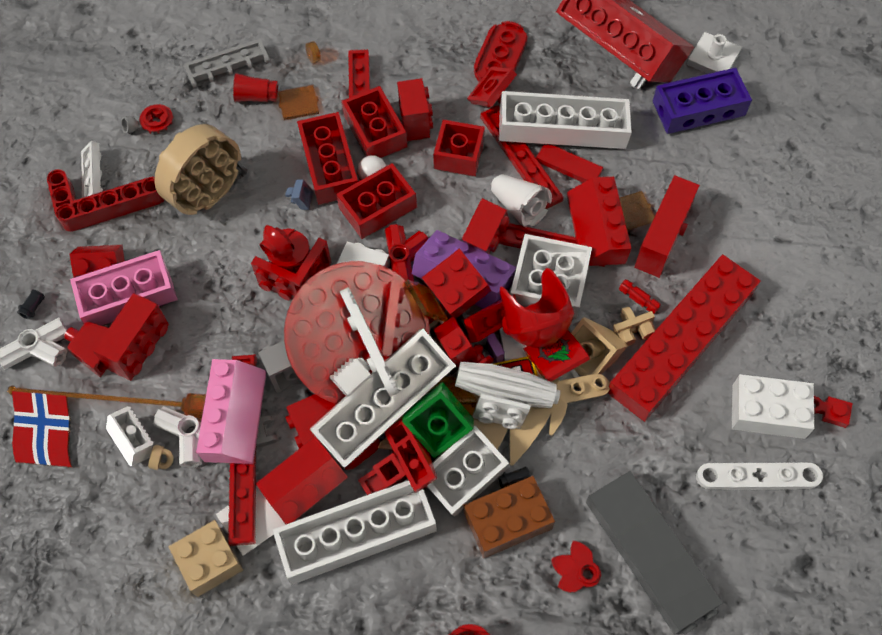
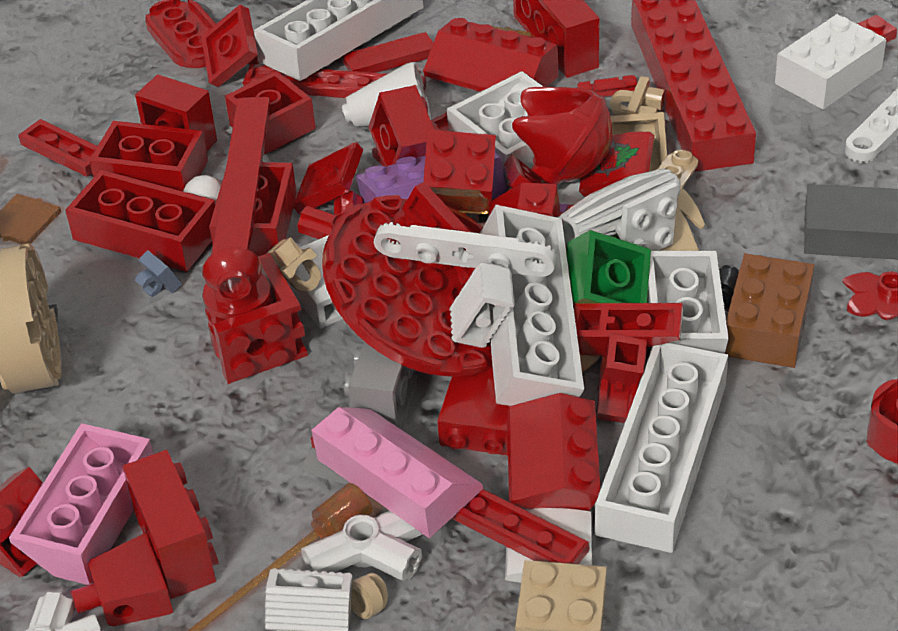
camera: 50 degrees left, 20 degrees down
(332, 252) = (289, 257): none -> tan hips
(373, 185) = (242, 174): none -> red tile
(431, 216) = (328, 177): none -> red tile

